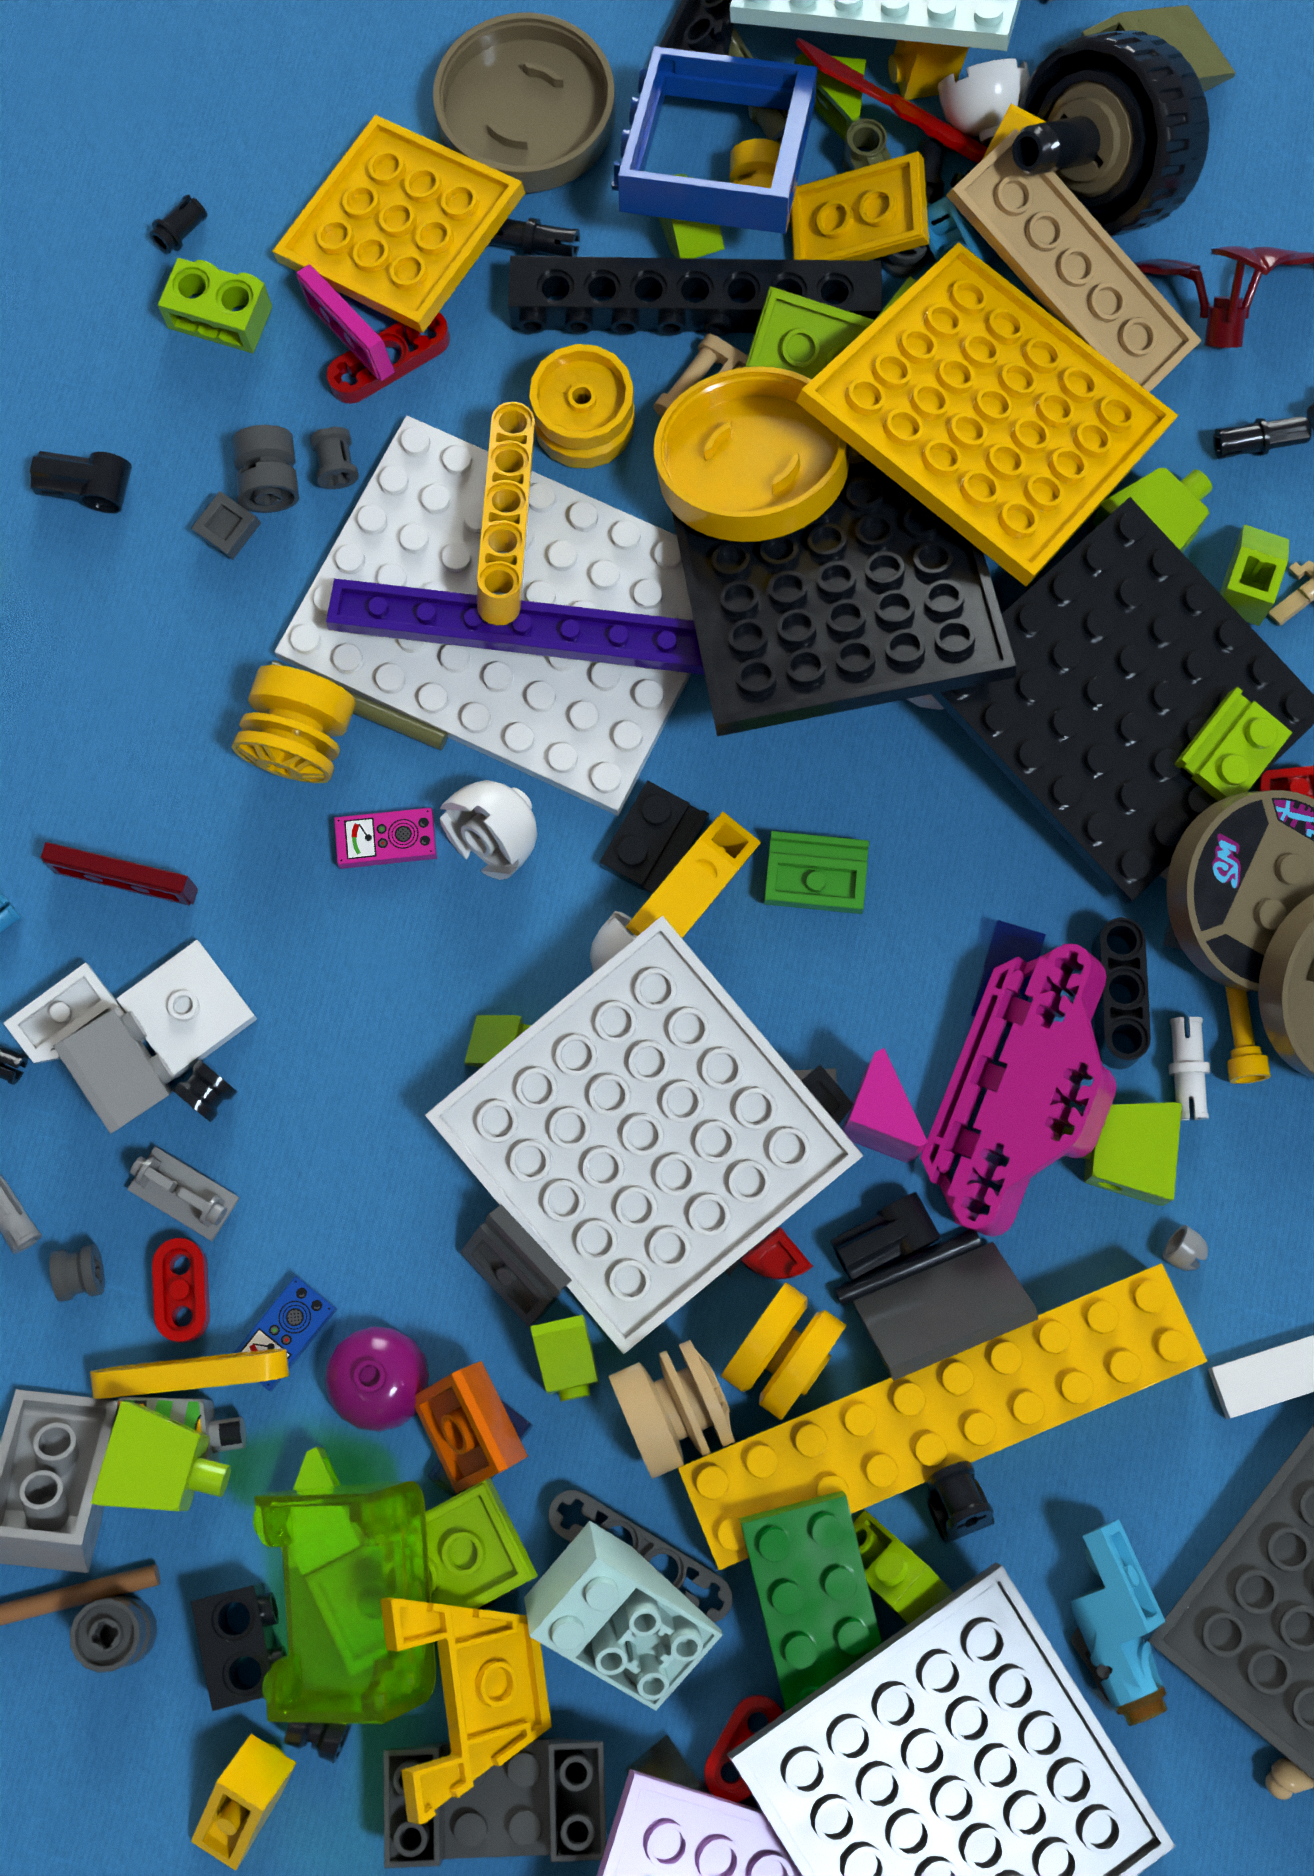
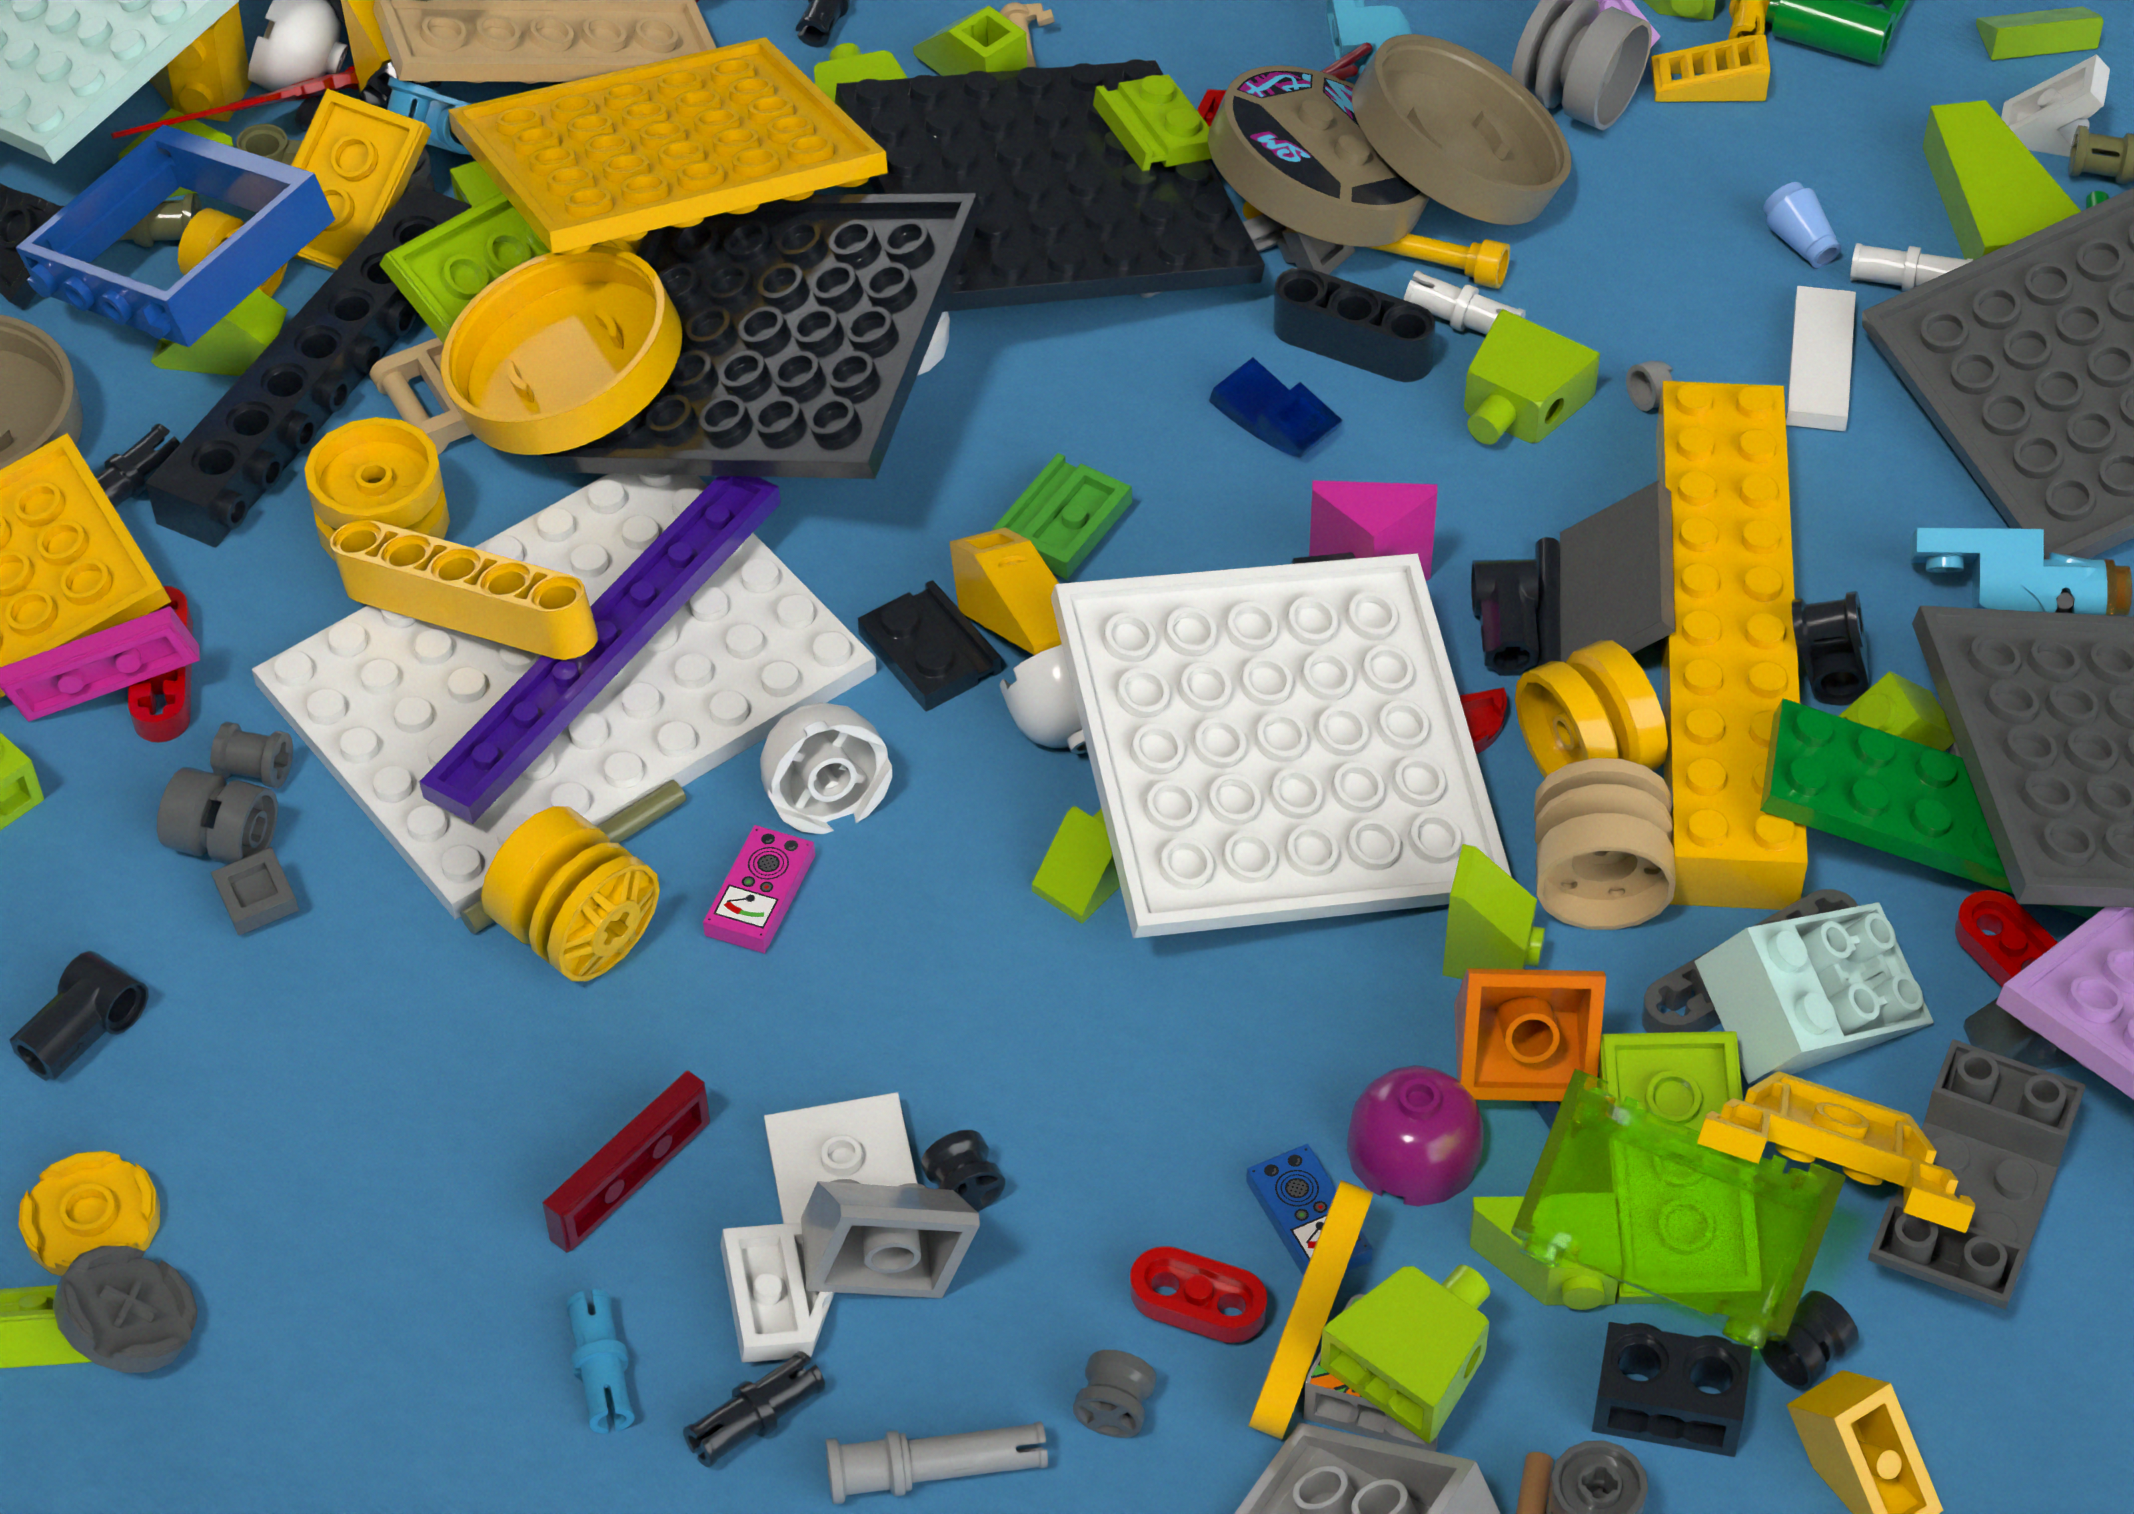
camera: 65 degrees left, 25 degrees down
(182, 1193) = (1077, 1252): light grey hinge -> none
(515, 1265) = (1358, 938): dark grey plate -> none
(1028, 1098) = (1426, 412): dark pink connector -> none

